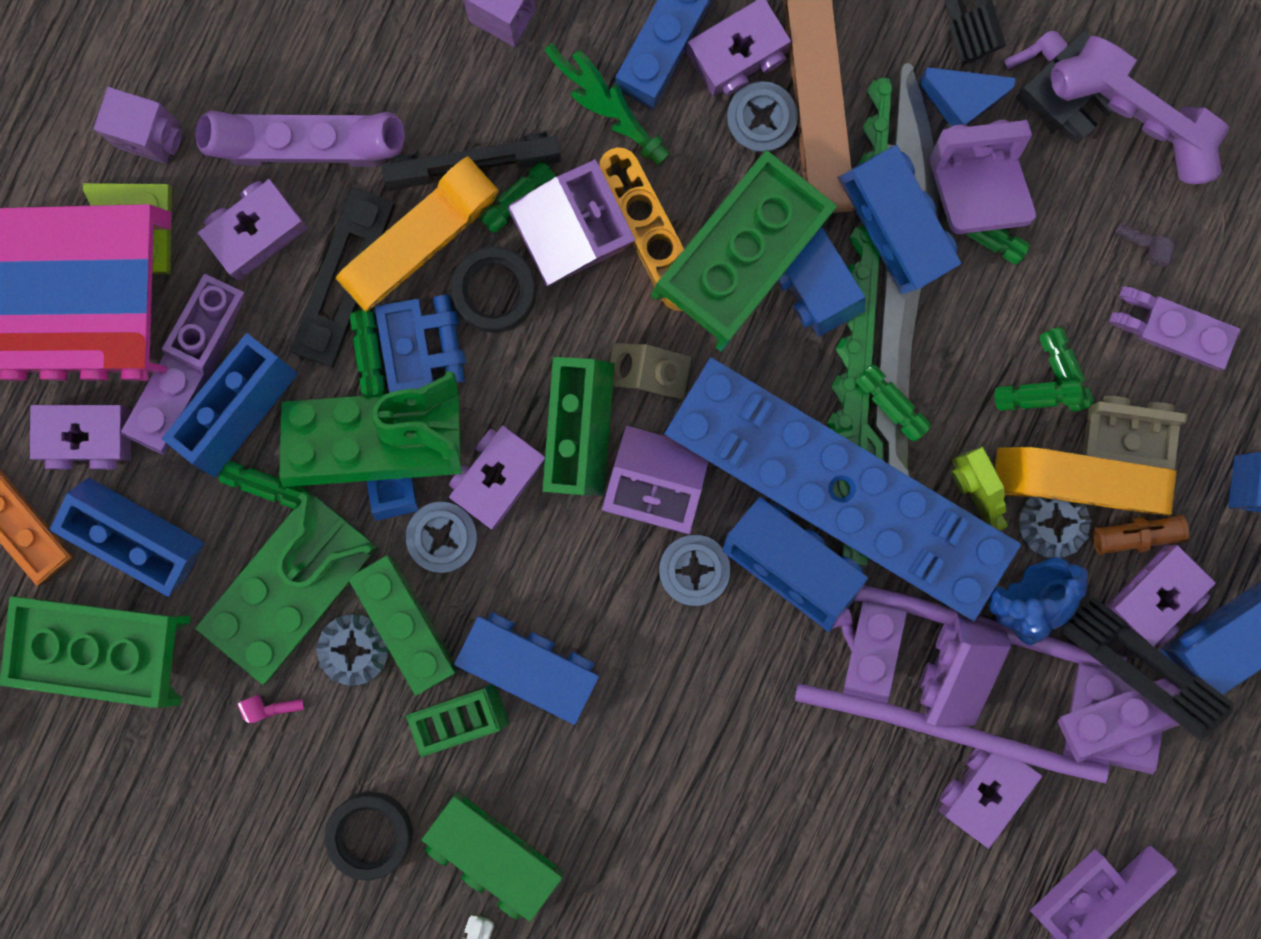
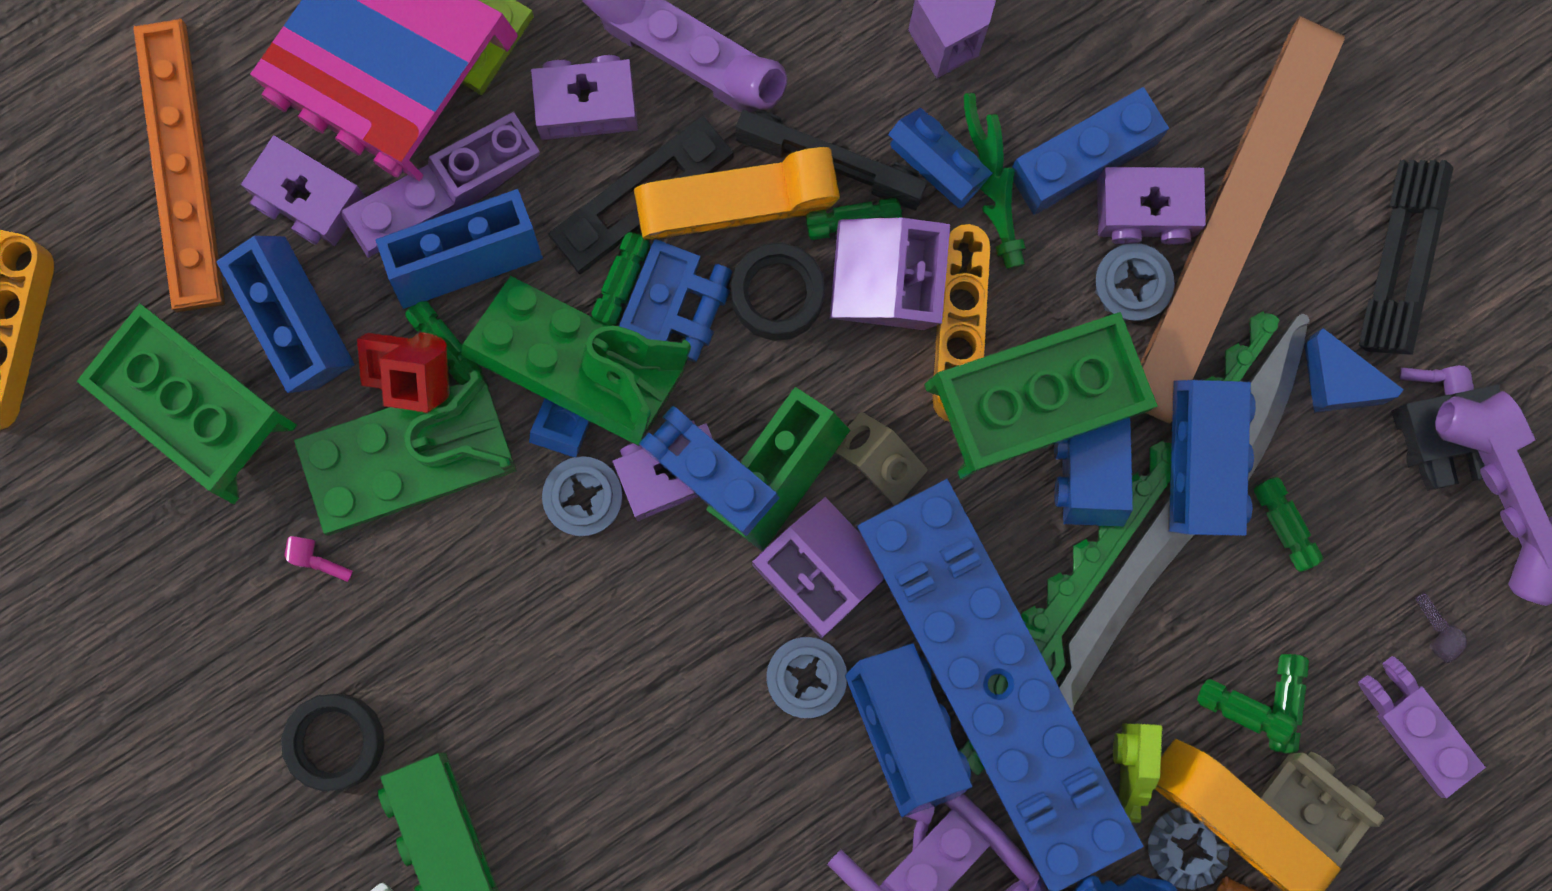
camera: 30 degrees right, 5 degrees down
(249, 523) = (406, 369): none -> red brick
(365, 666) = (432, 576): sand blue gear -> none
(403, 624) = (493, 557): green brick -> none
(492, 707) = (528, 693): green slope -> none
(528, 667) = (587, 672): blue brick -> none
(529, 461) = (711, 472): none -> blue plate
(554, 110) = (939, 157): none -> blue bracket
(893, 402) = (1099, 631): green axle -> none
(982, 176) = (1316, 465): medium lavender bracket -> none

